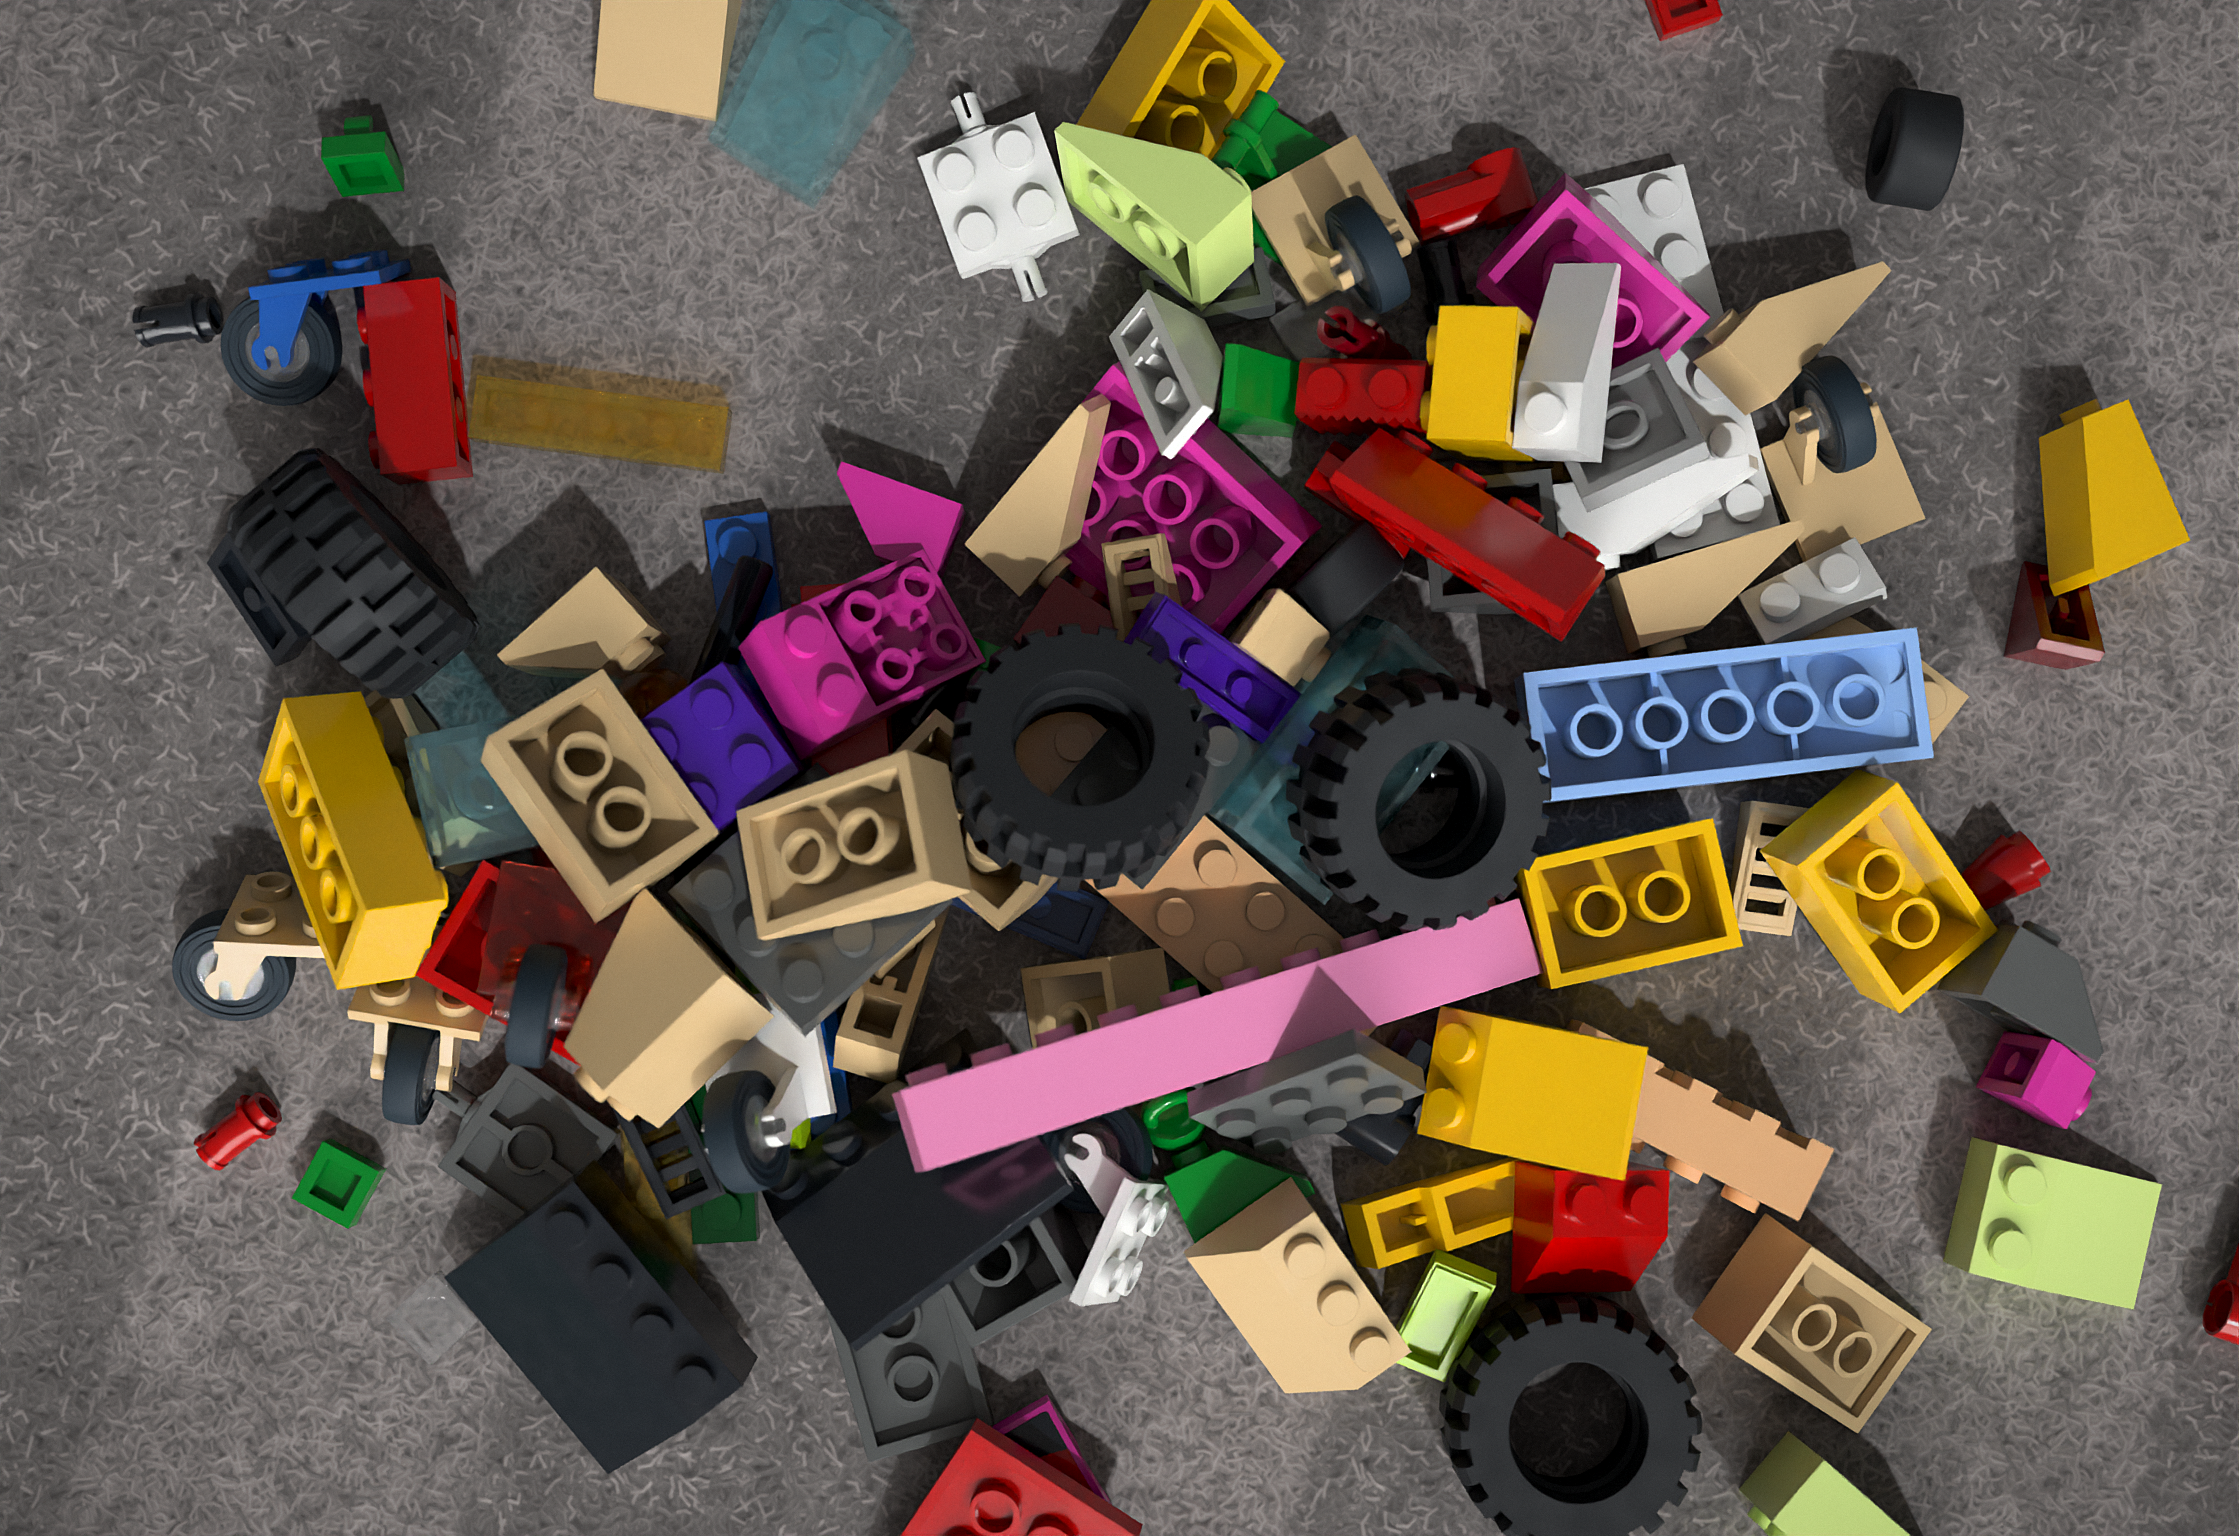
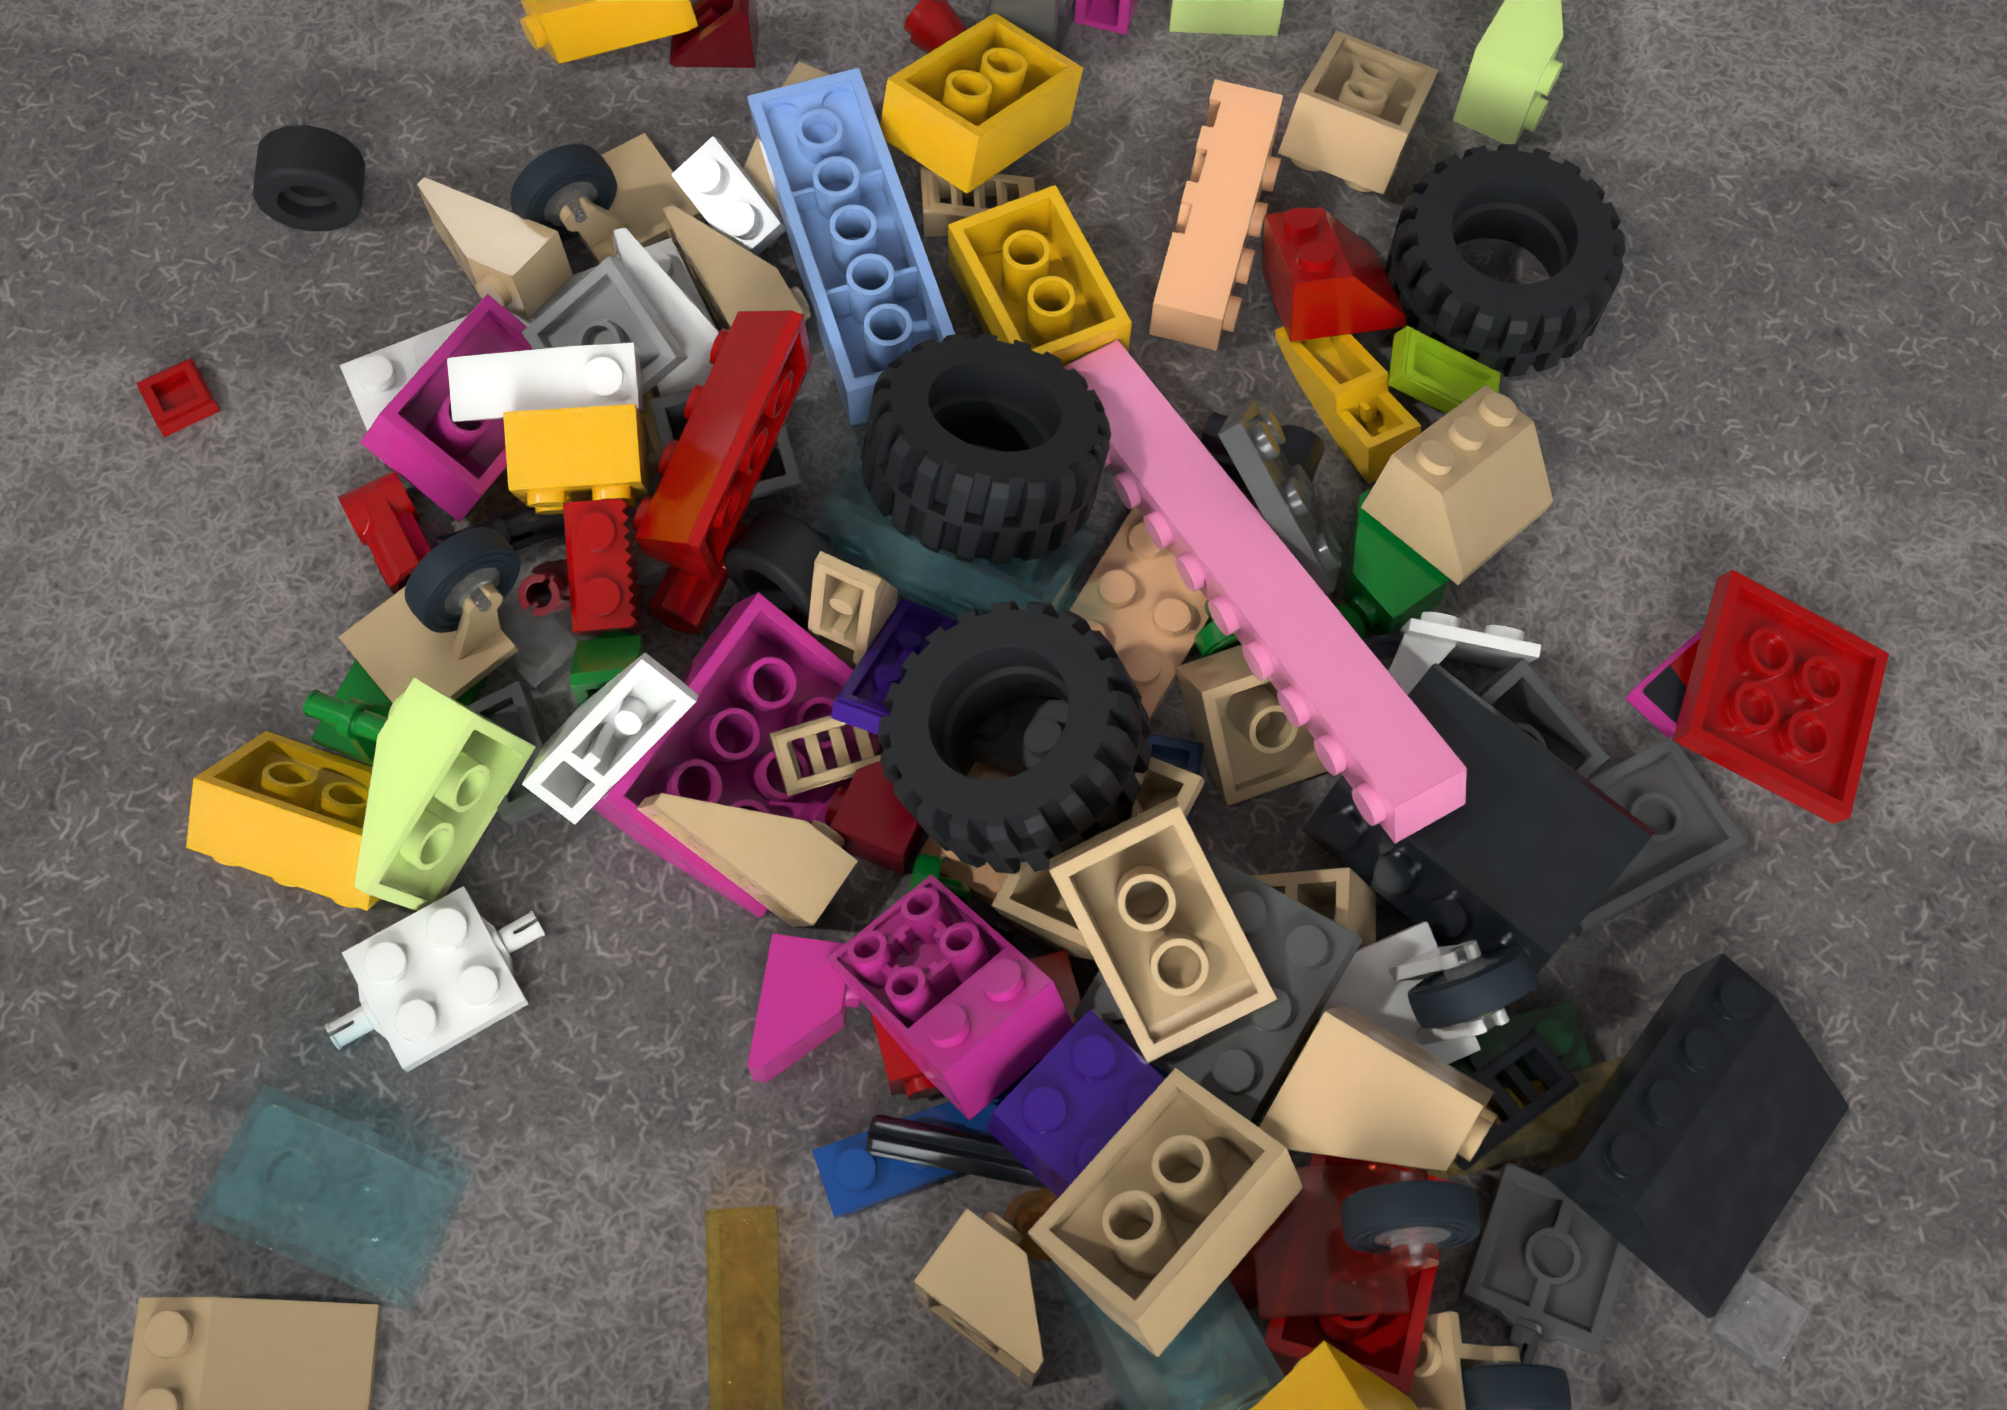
camera: 105 degrees left, 20 degrees down
(1532, 1091) = (1227, 318): yellow slope -> none

